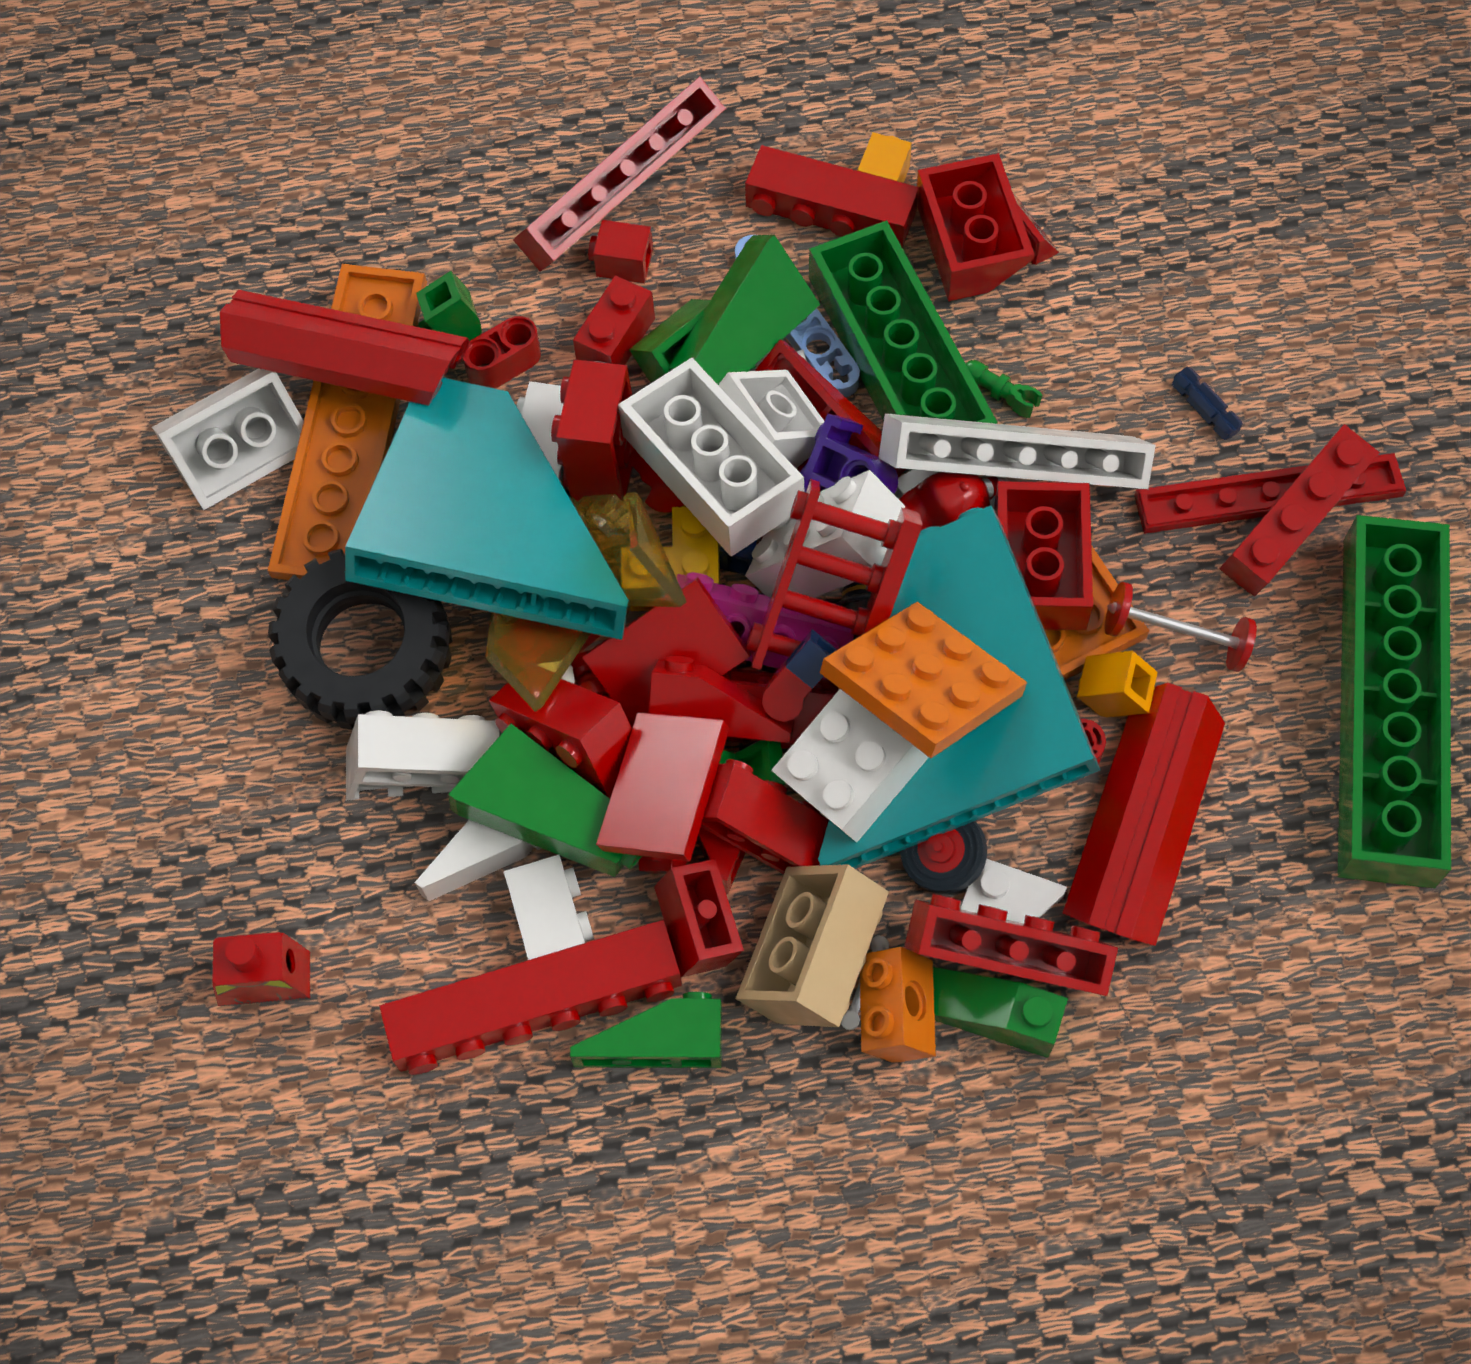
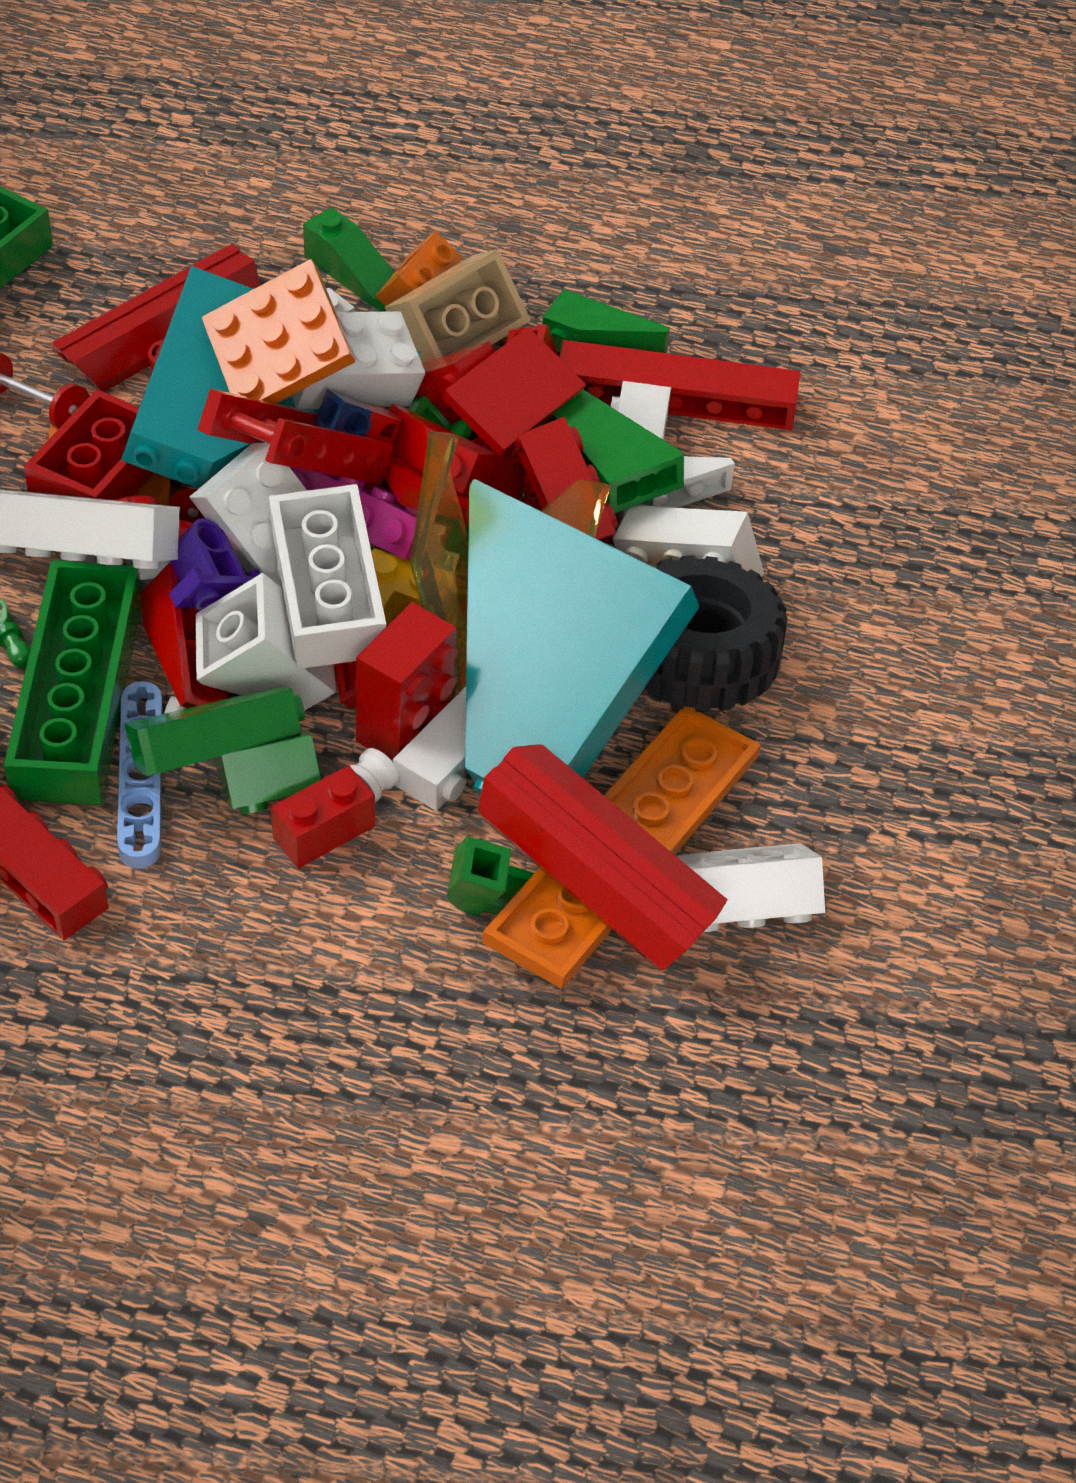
camera: 160 degrees left, 15 degrees down
(256, 971) = (884, 464): red torso -> none
(502, 354) = (431, 842): red beam -> none
(619, 174) = (218, 960): brick -> none
(621, 251) = (266, 893): red brick -> none
(1010, 947) = (345, 263): red brick -> none
(1117, 684) = (113, 376): light orange brick -> none

